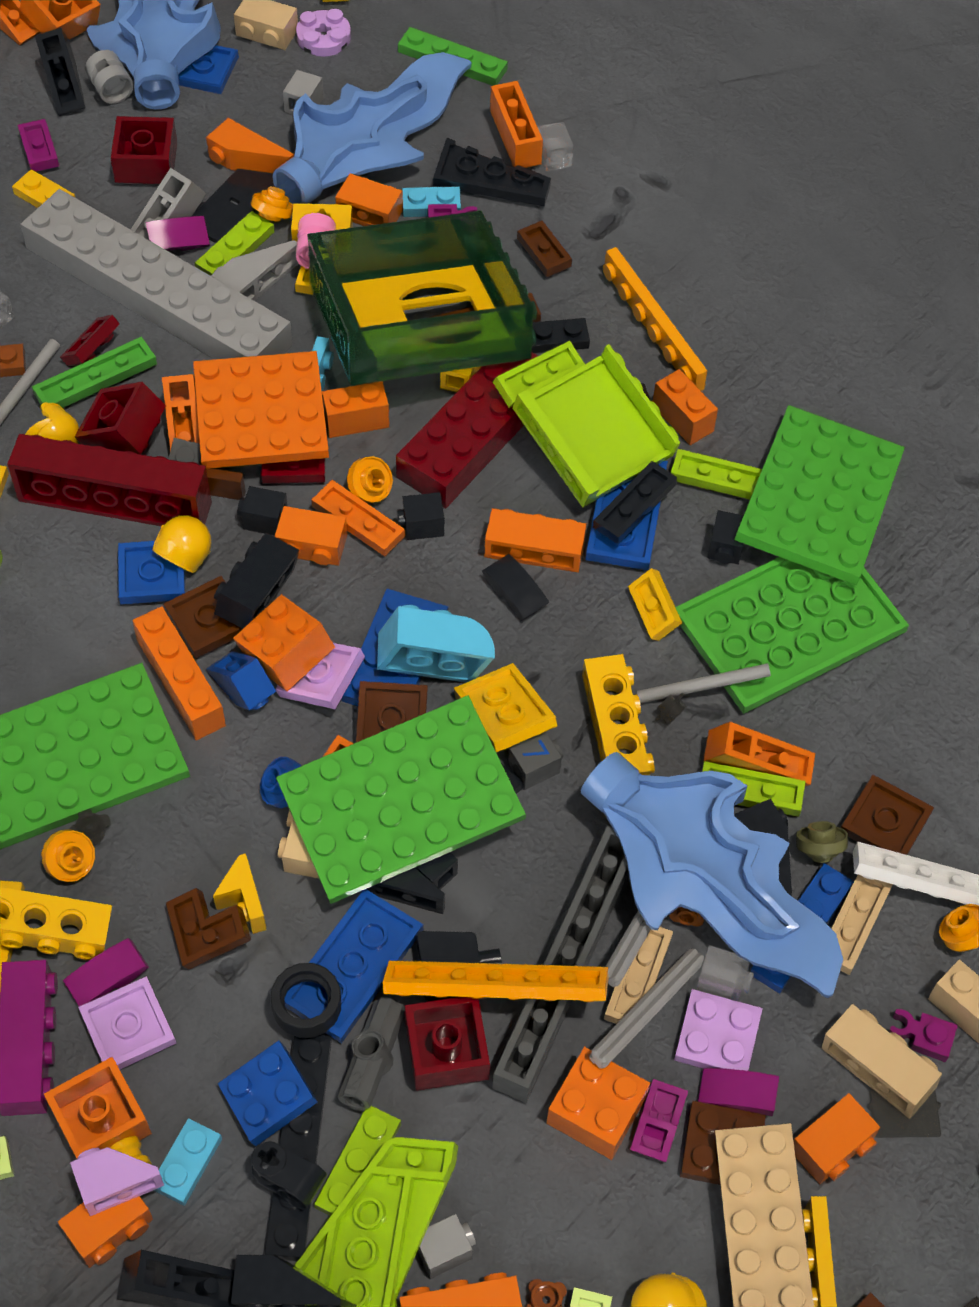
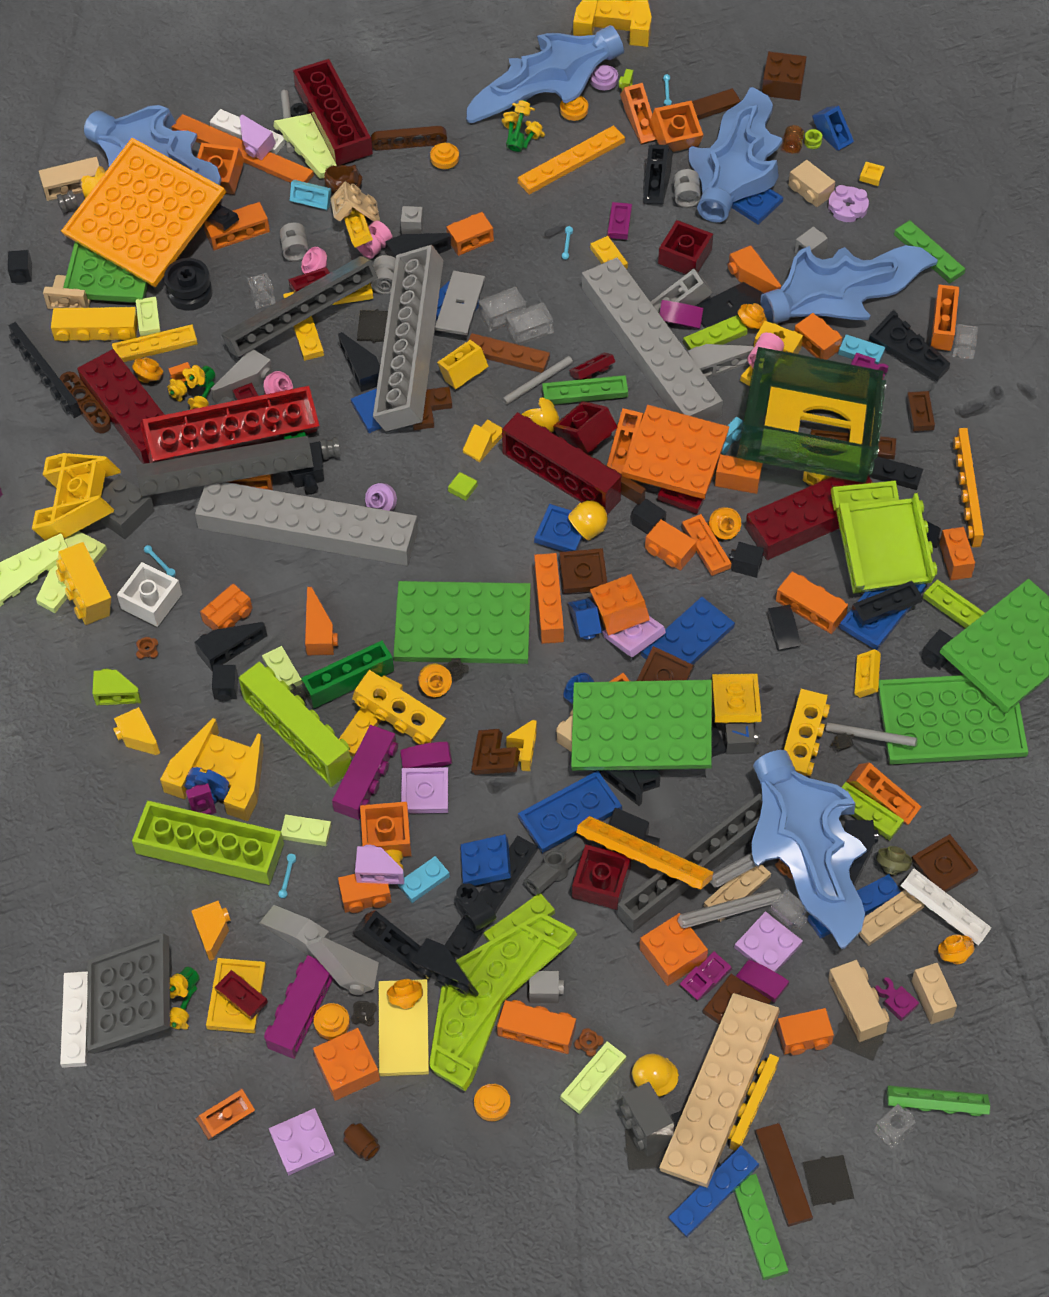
camera: 30 degrees right, 0 degrees up
(185, 451) = (616, 461): dark grey plate -> none
(255, 580) = (621, 559): black brick -> none
(306, 973) = (526, 802): black tyre -> none
(434, 645) = (709, 642): medium azure brick -> none

